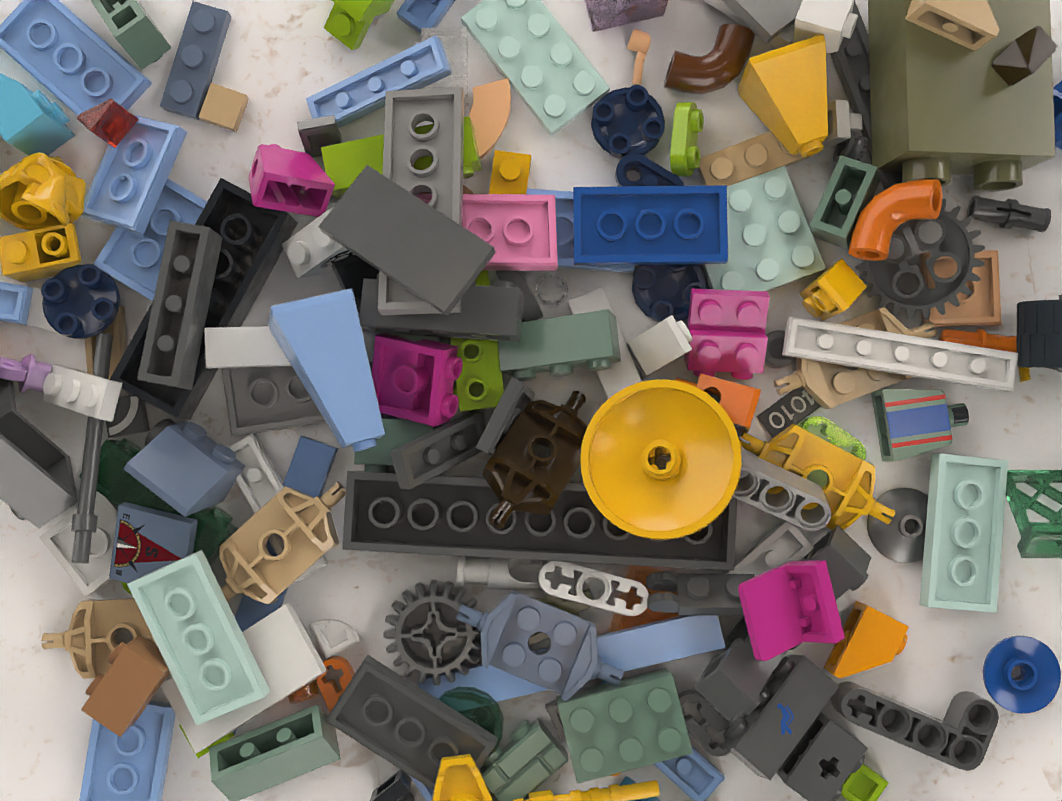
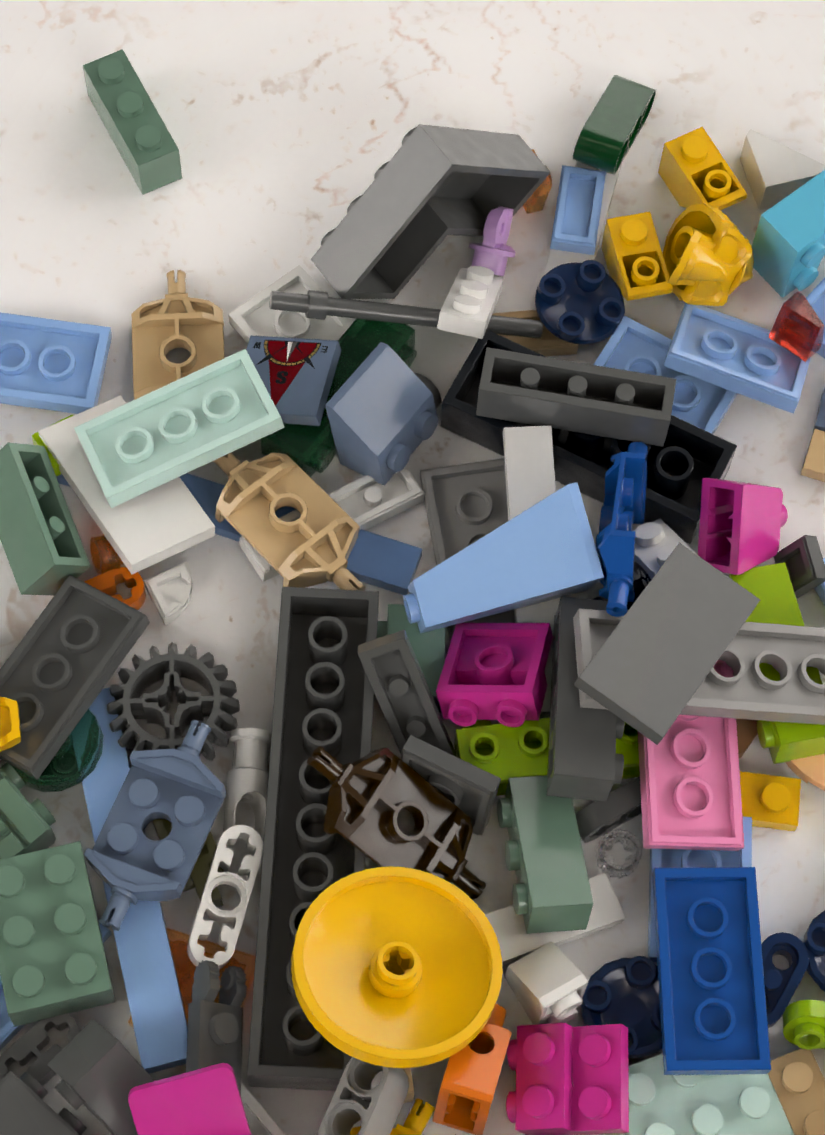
camera: 90 degrees right, 20 degrees down
(127, 686) = (124, 354): medium nougat brick -> none
(129, 417) = (442, 355): dark grey tile -> none
(325, 279) = (616, 539): none -> blue plate

